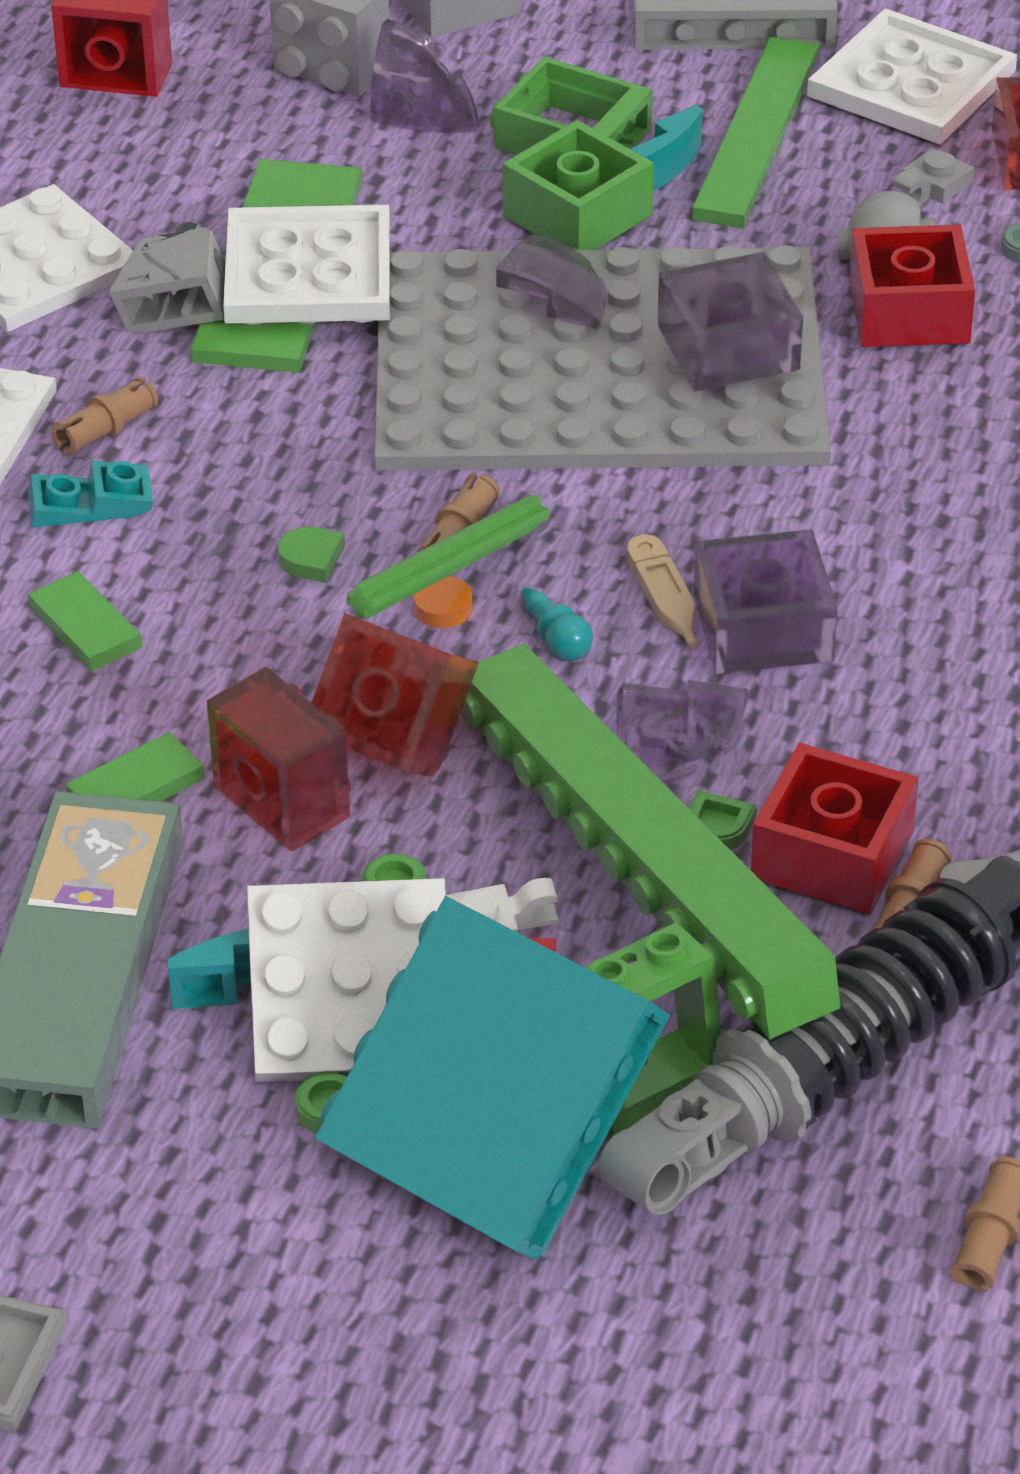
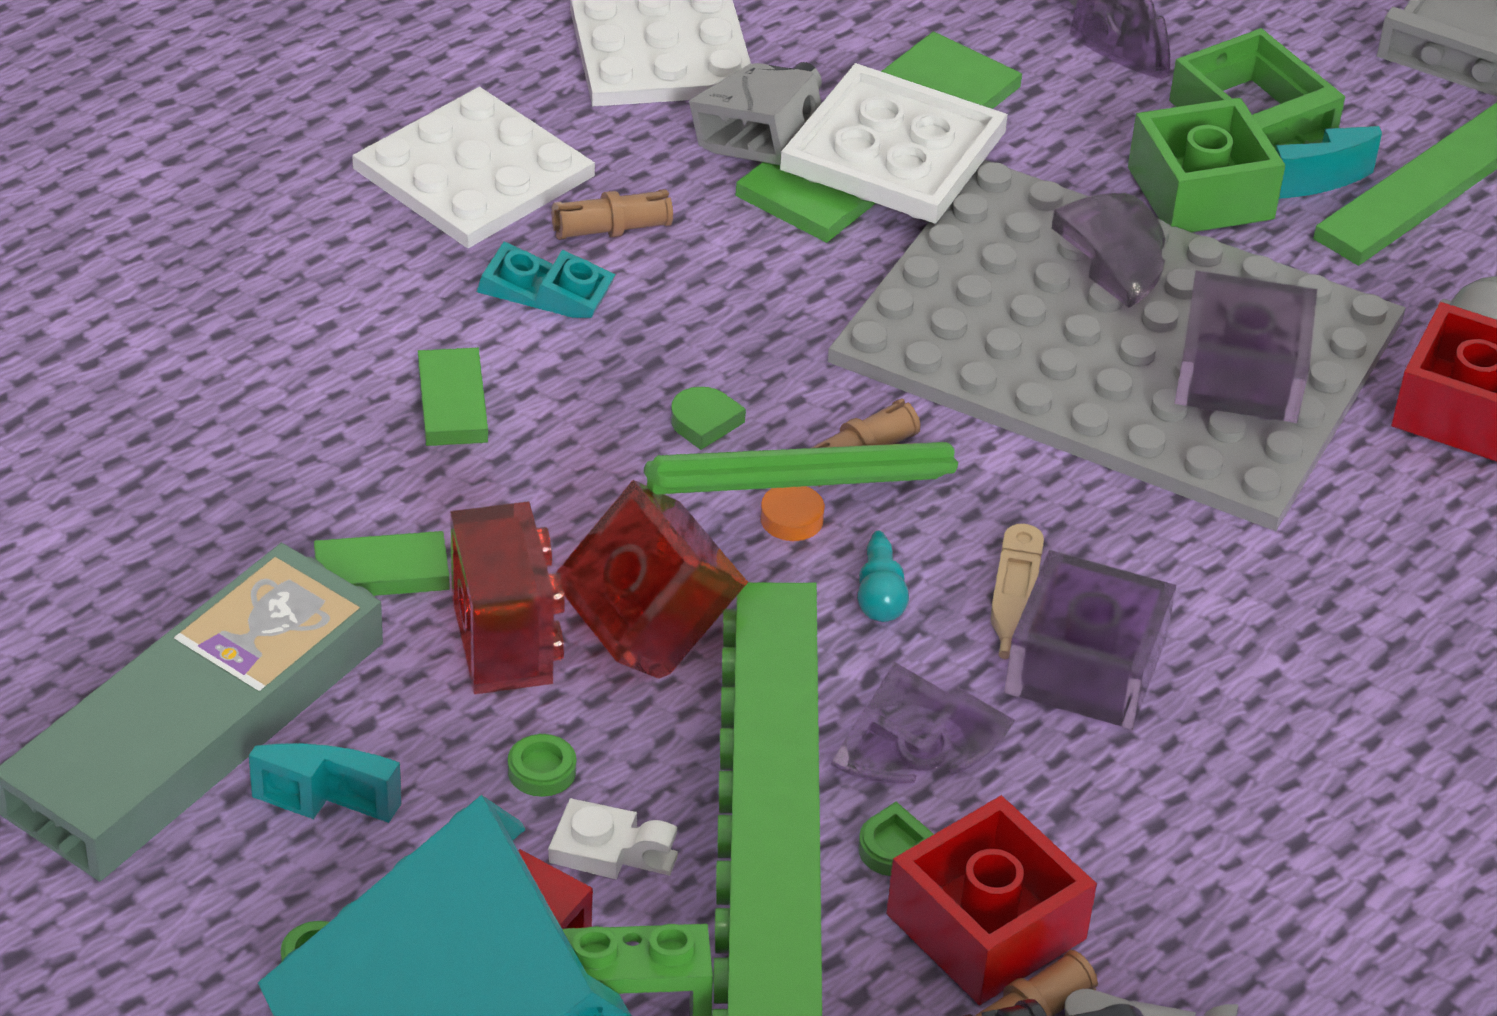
camera: 25 degrees right, 0 degrees up
(326, 967) = (382, 802): white plate -> none

